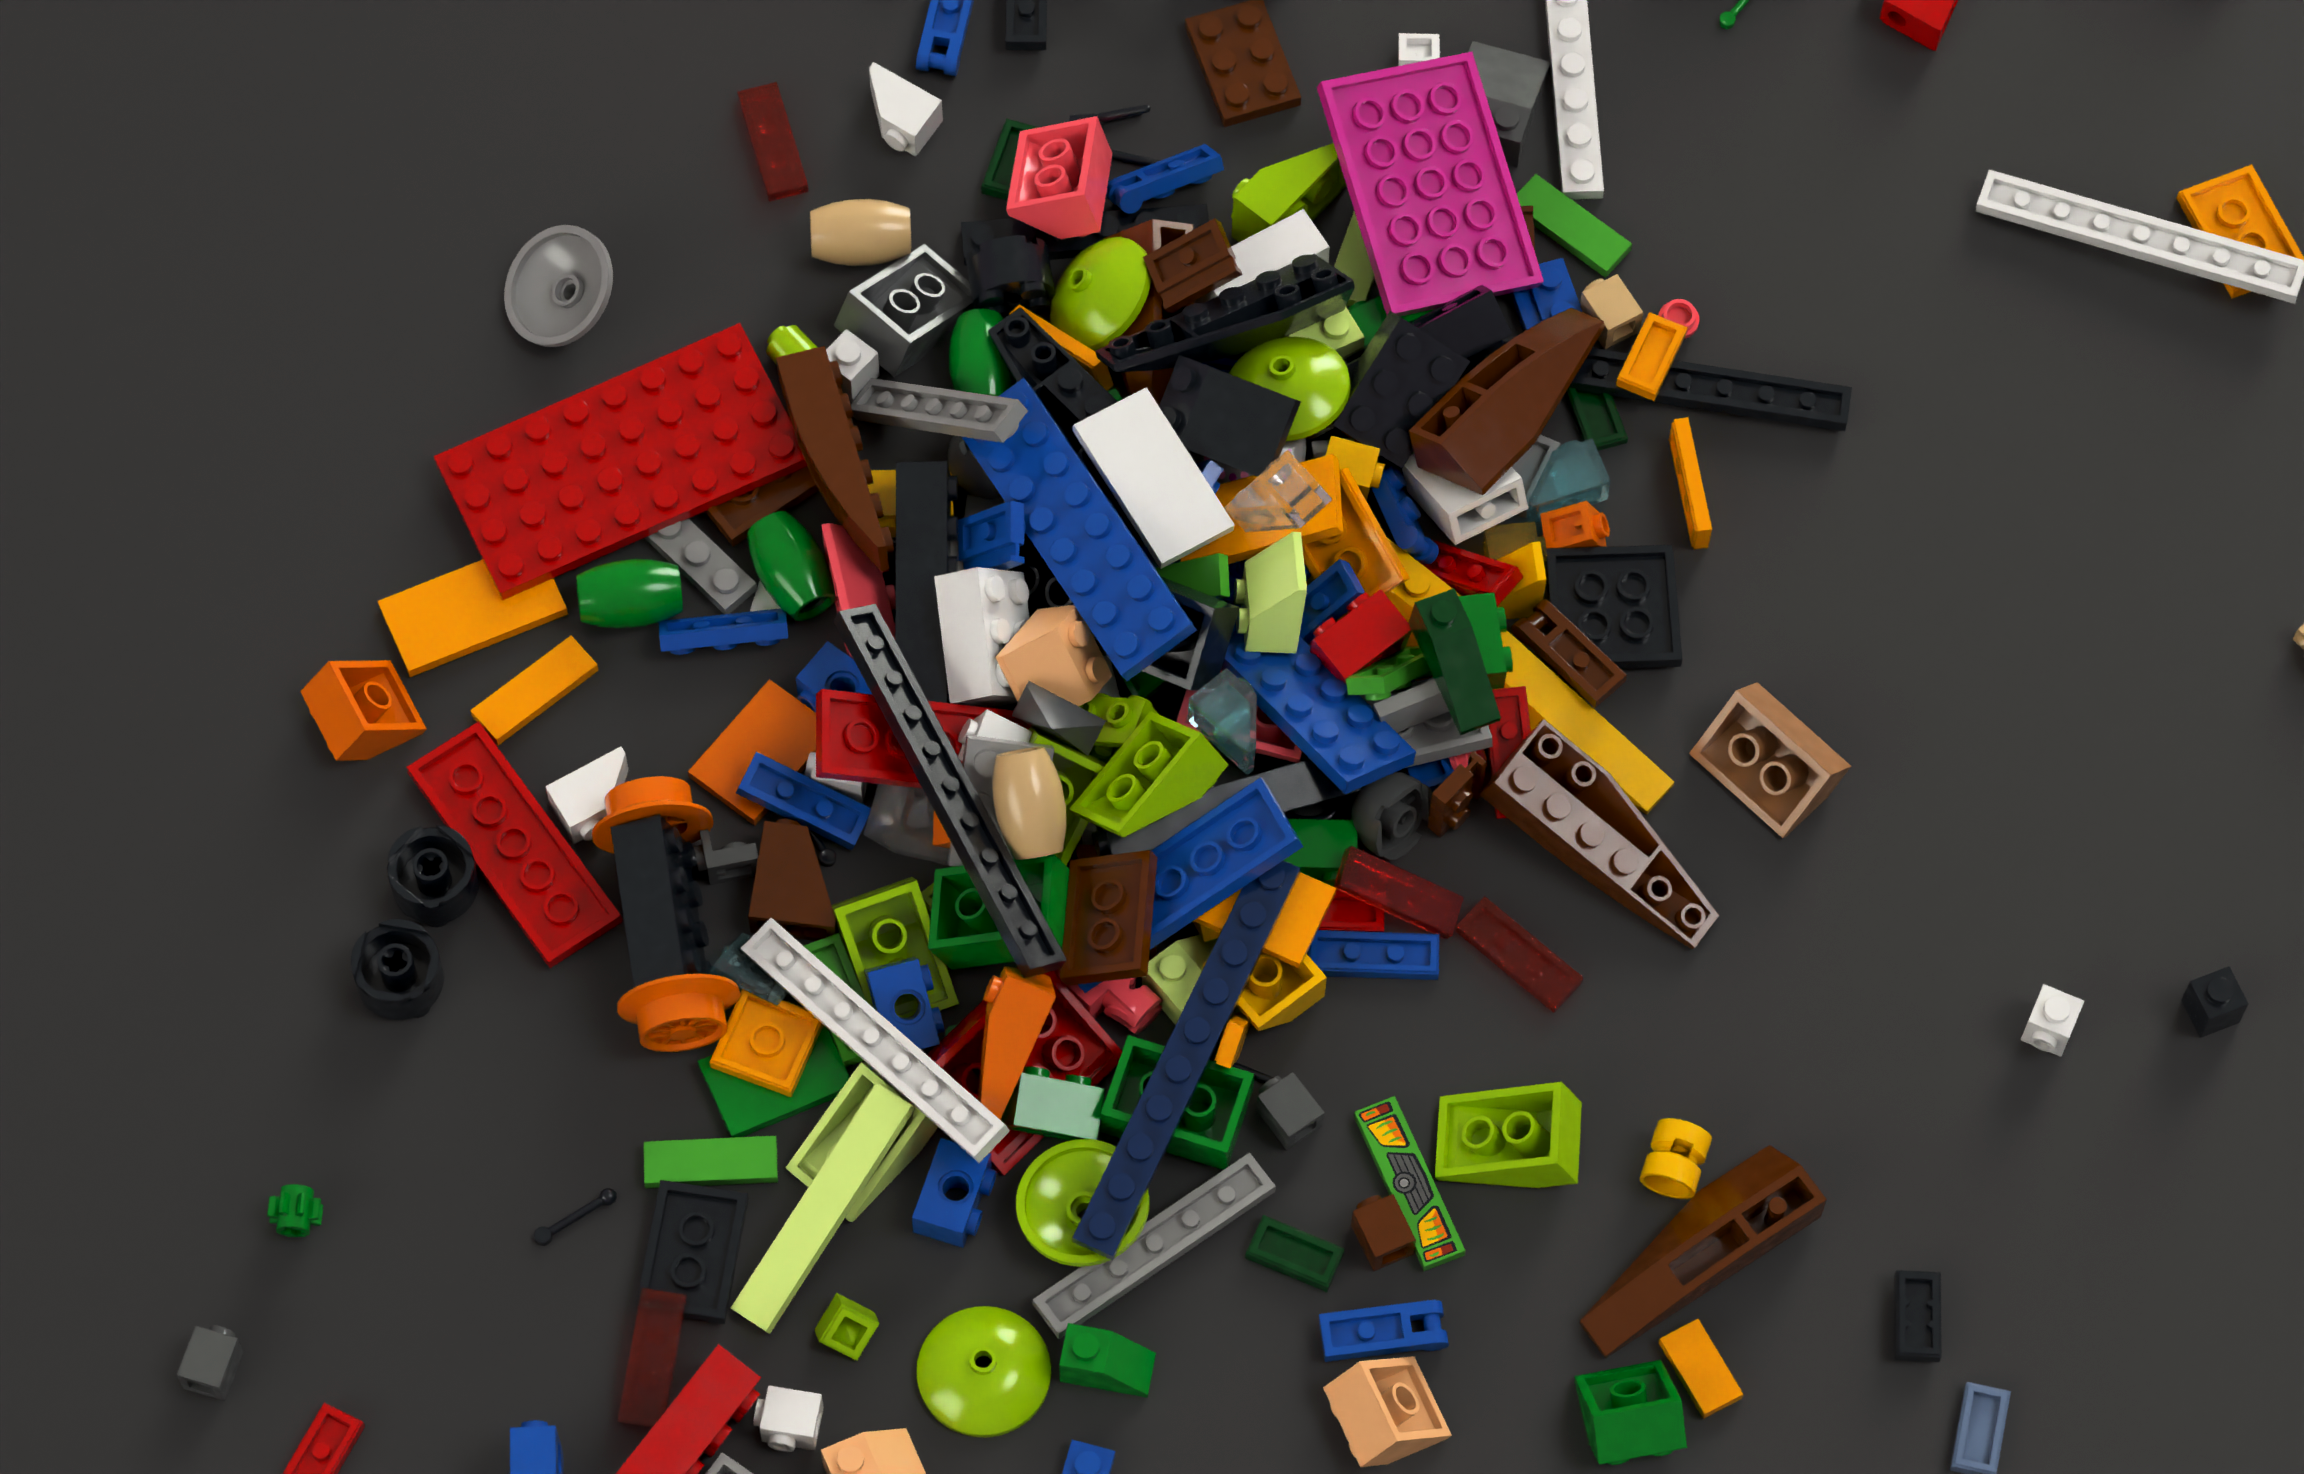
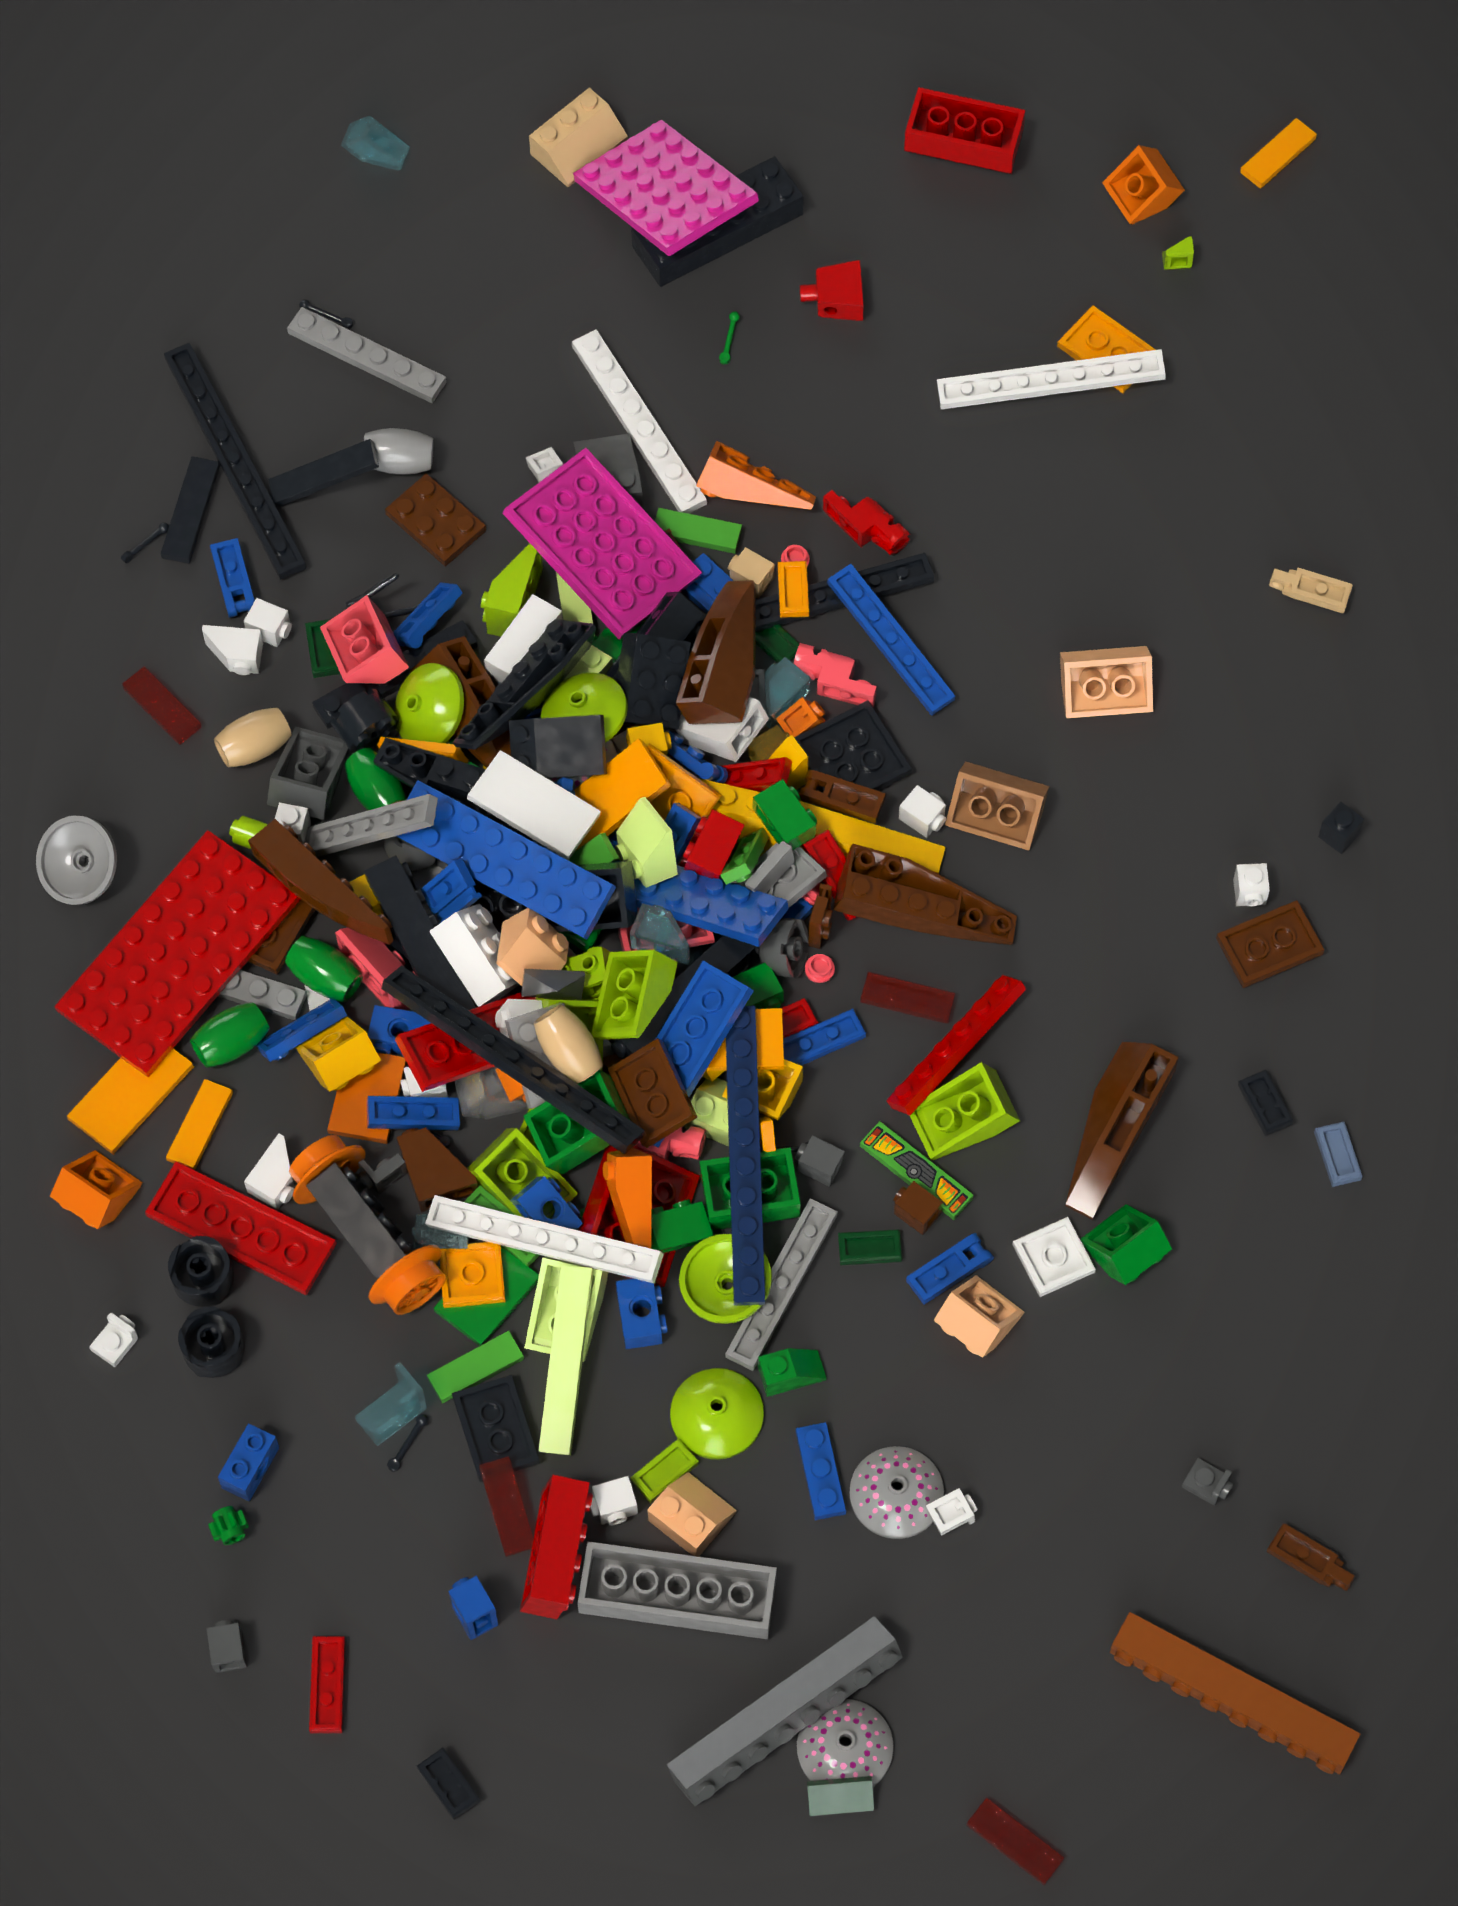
camera: 25 degrees left, 0 degrees up
(285, 910) = (115, 1339): none -> white bracket
(362, 1143) = (248, 1462): none -> blue brick
(576, 1165) = (393, 1408): none -> clear light blue panel
(750, 683) = (339, 1054): none -> yellow slope
(846, 1326) = (617, 1427): lime slope -> none
(877, 1409) = (664, 1470): none -> lime tile
(962, 96) = (270, 619): none -> white brick
(1192, 265) = (483, 661): reddish brown plate -> none
(1279, 498) = (621, 781): clear slope -> none
(1398, 892) = (816, 993): clear red tile -> none
(1425, 860) = (819, 968): none -> coral plate
(1454, 660) = (782, 831): dark green slope -> none
(1528, 1382) = (1053, 1257): none -> white tile
(1547, 1044) = (956, 1044): none -> red plate
(1646, 492) = (834, 675): none -> coral plate
(1653, 175) = (733, 478): none -> wedge
(1668, 721) = (923, 811): none -> white brick
(1676, 1156) = (1071, 1075): yellow wheel -> none
(1690, 483) = (863, 663): light orange tile -> none
(1700, 1368) = (1152, 1197): light orange tile -> none
(1745, 480) = (891, 639): none -> blue plate
(1797, 314) = (866, 522): none -> red plate
(2002, 665) = (1107, 681): none -> light nougat slope
(2036, 1110) = (1270, 944): none -> reddish brown plate

